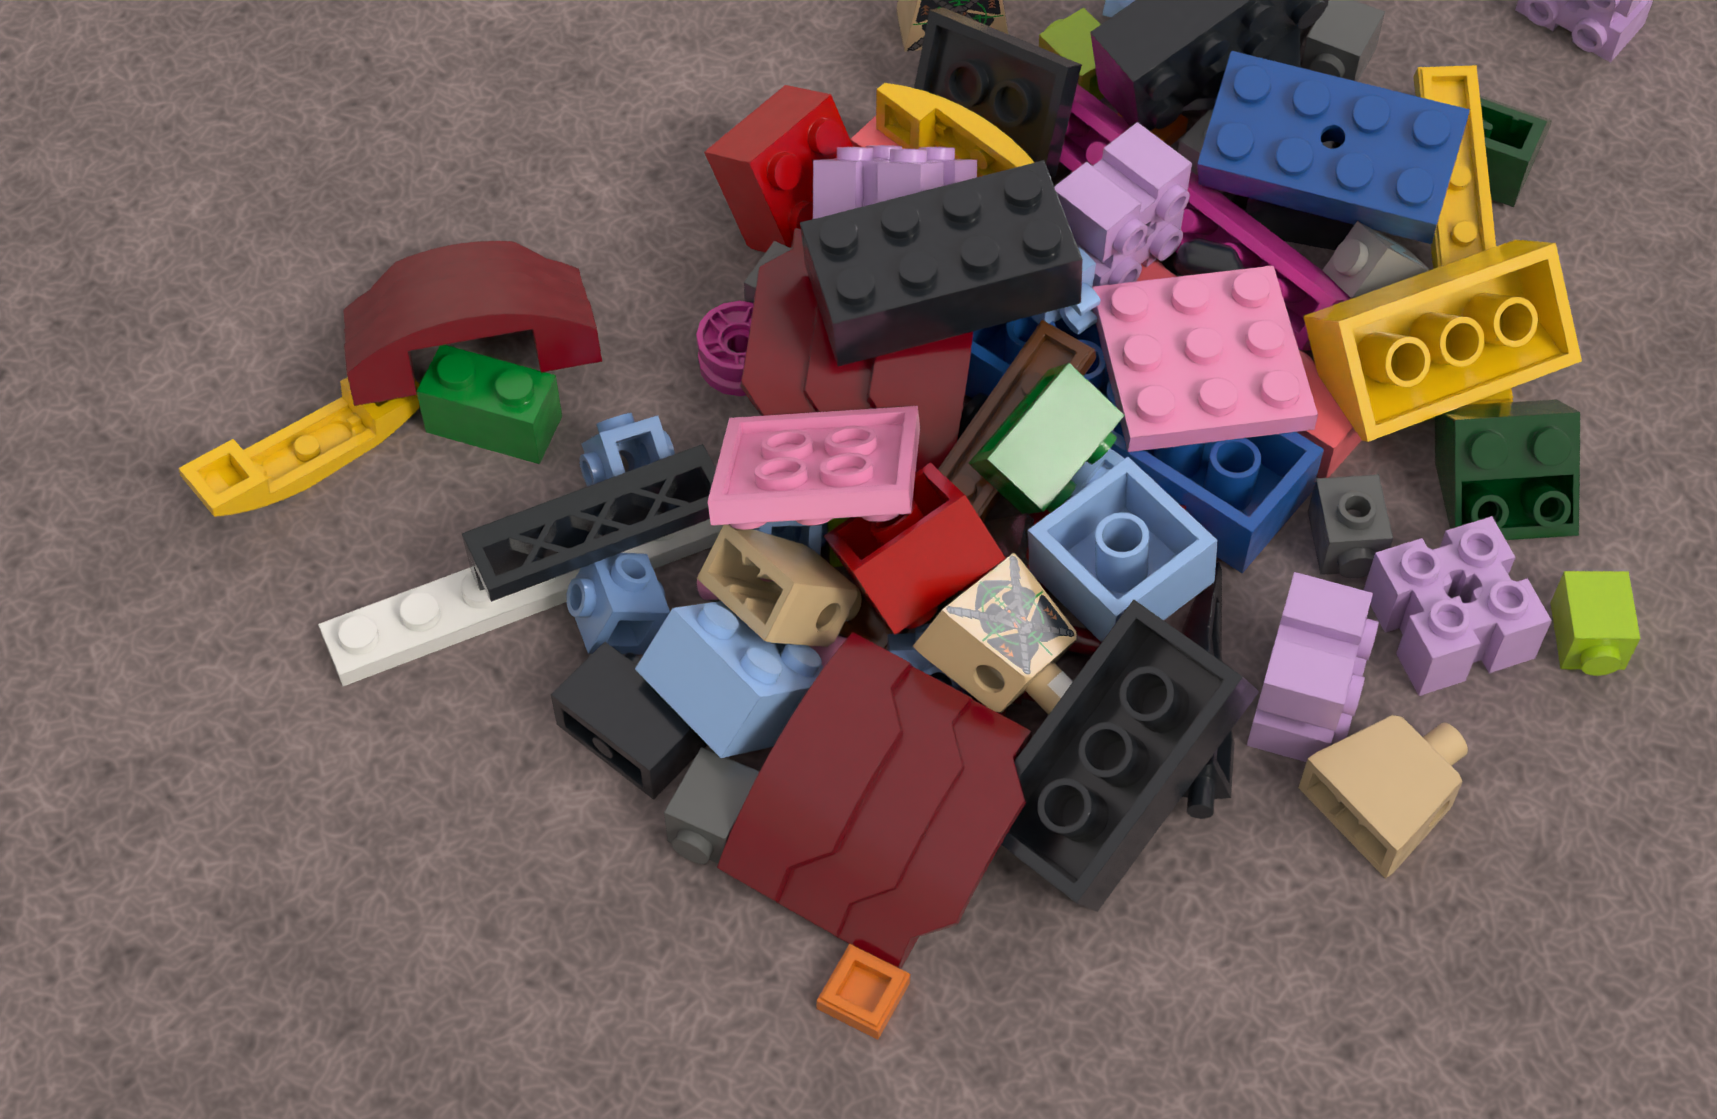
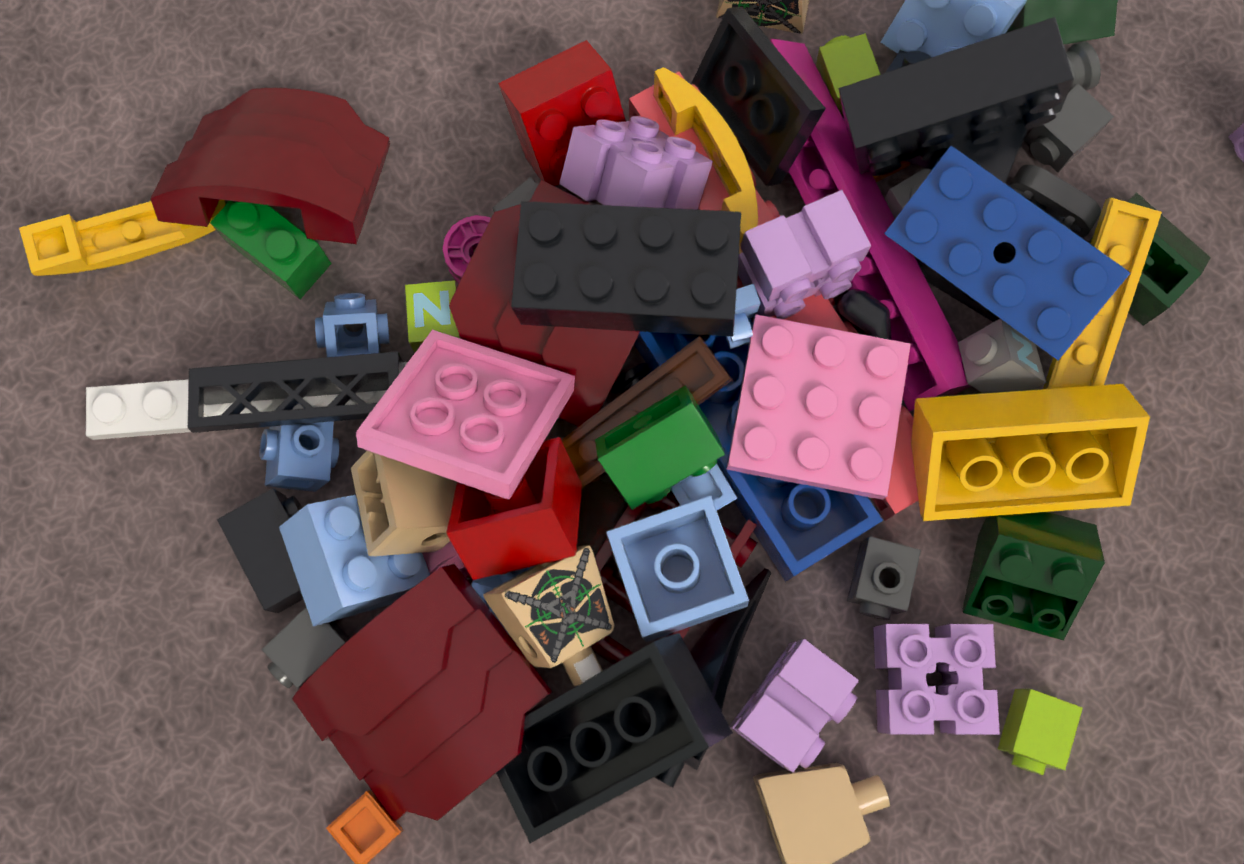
camera: 20 degrees right, 20 degrees up
(705, 409) = (429, 310): none -> lime brick

